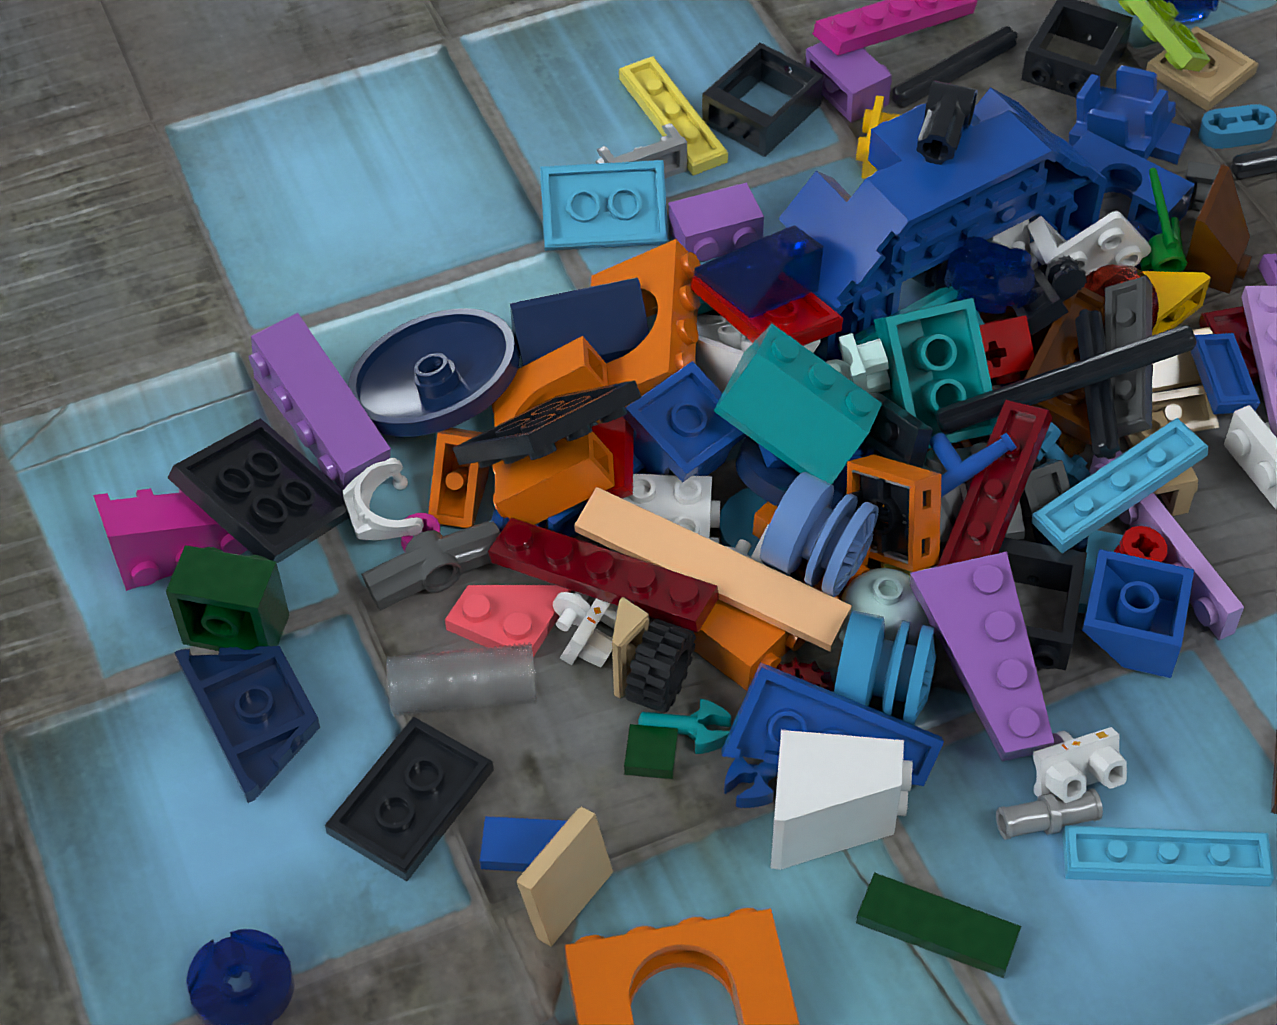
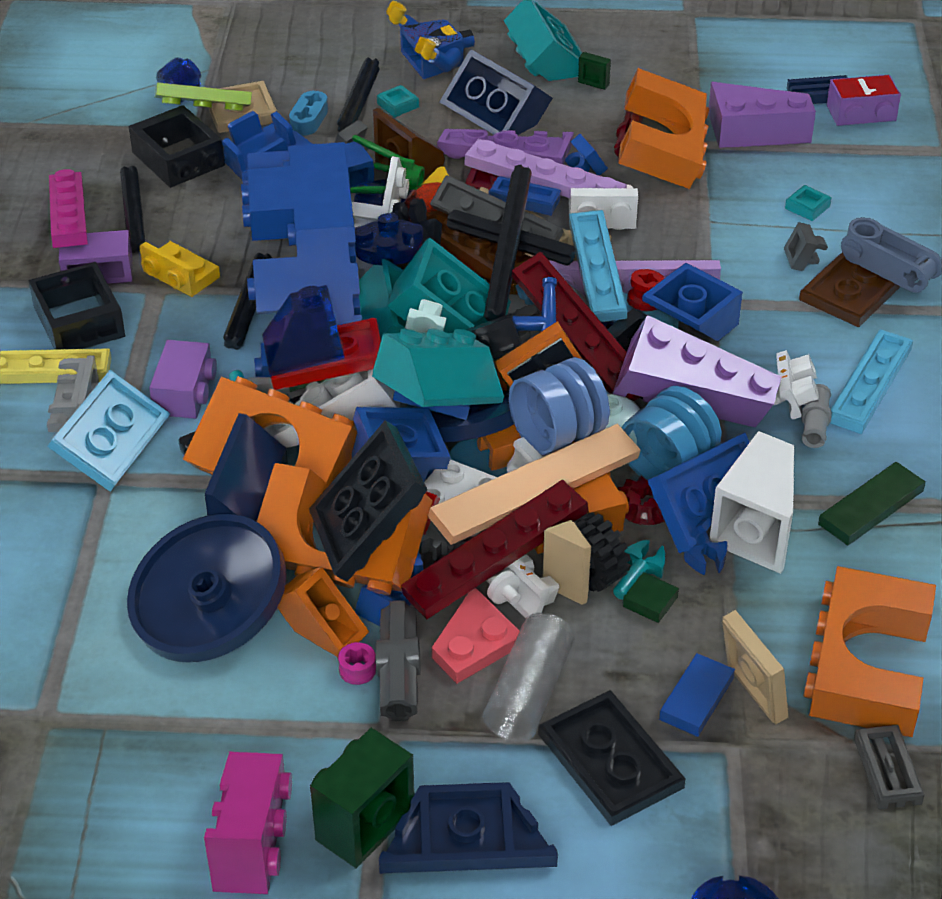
camera: 65 degrees left, 10 degrees down
(262, 491) = (263, 732): black plate -> none
(316, 400) = (178, 675): medium lavender wedge -> none
(358, 497) = (320, 682): white helmet -> none
(946, 115) = (279, 163): black piece -> none

